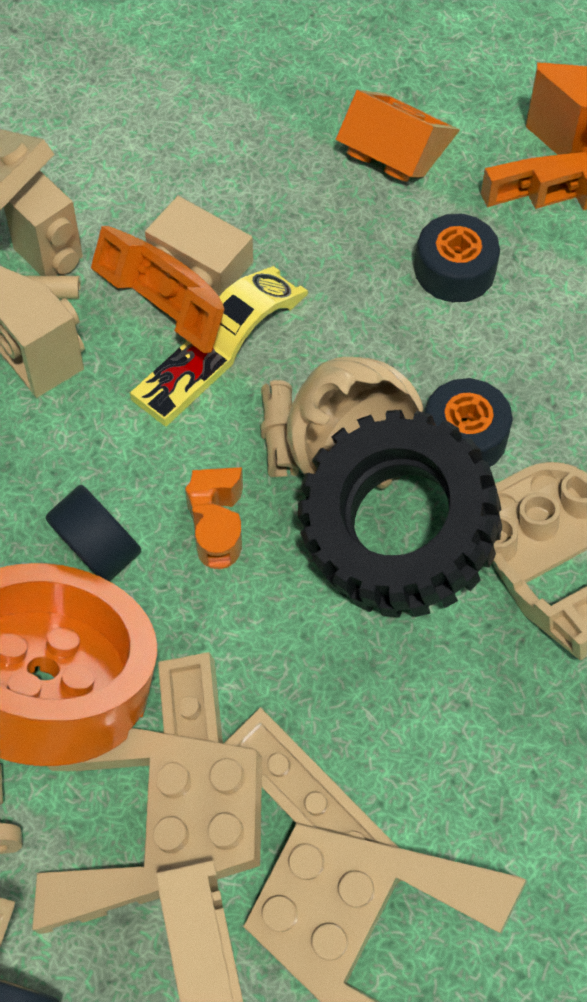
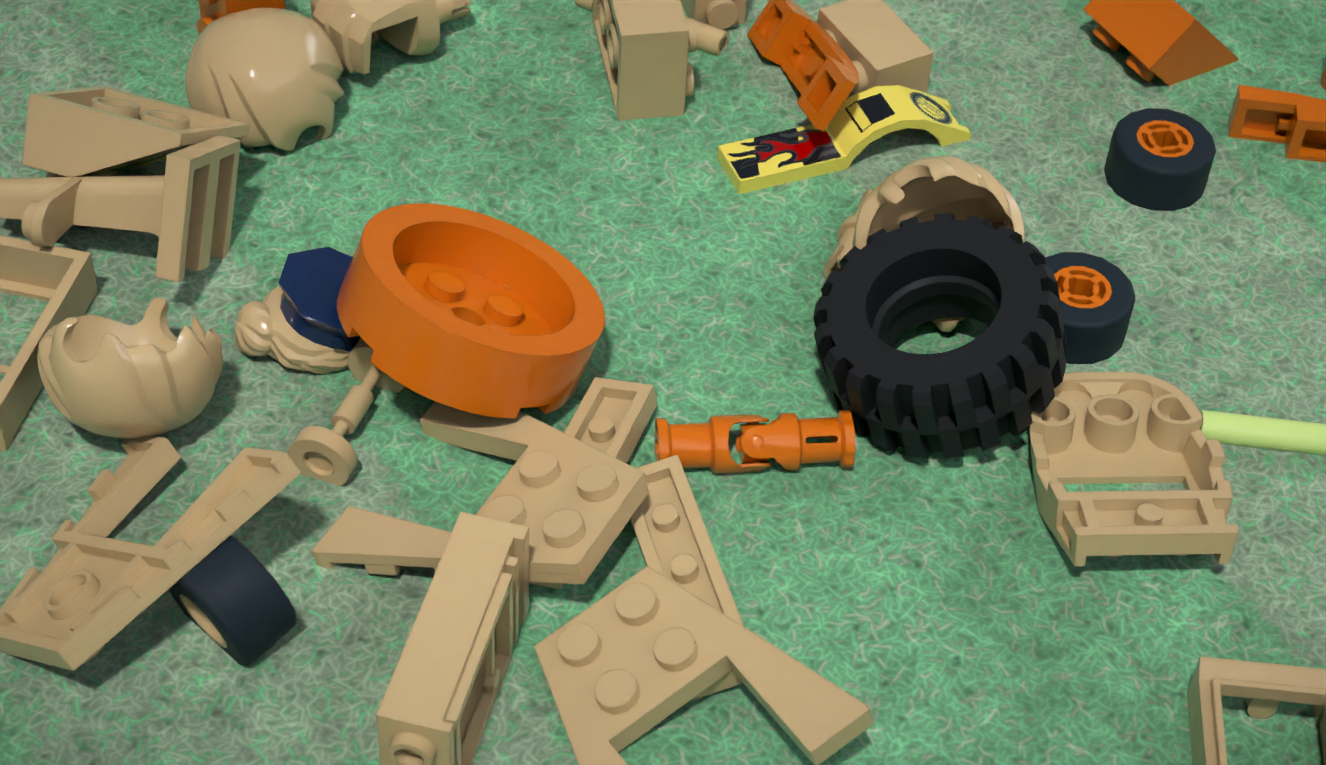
camera: 25 degrees right, 15 degrees down
(93, 533) = (599, 237): black wheel -> none
(216, 527) = (743, 266): orange leg -> none
(309, 658) = (783, 439): none -> orange piece

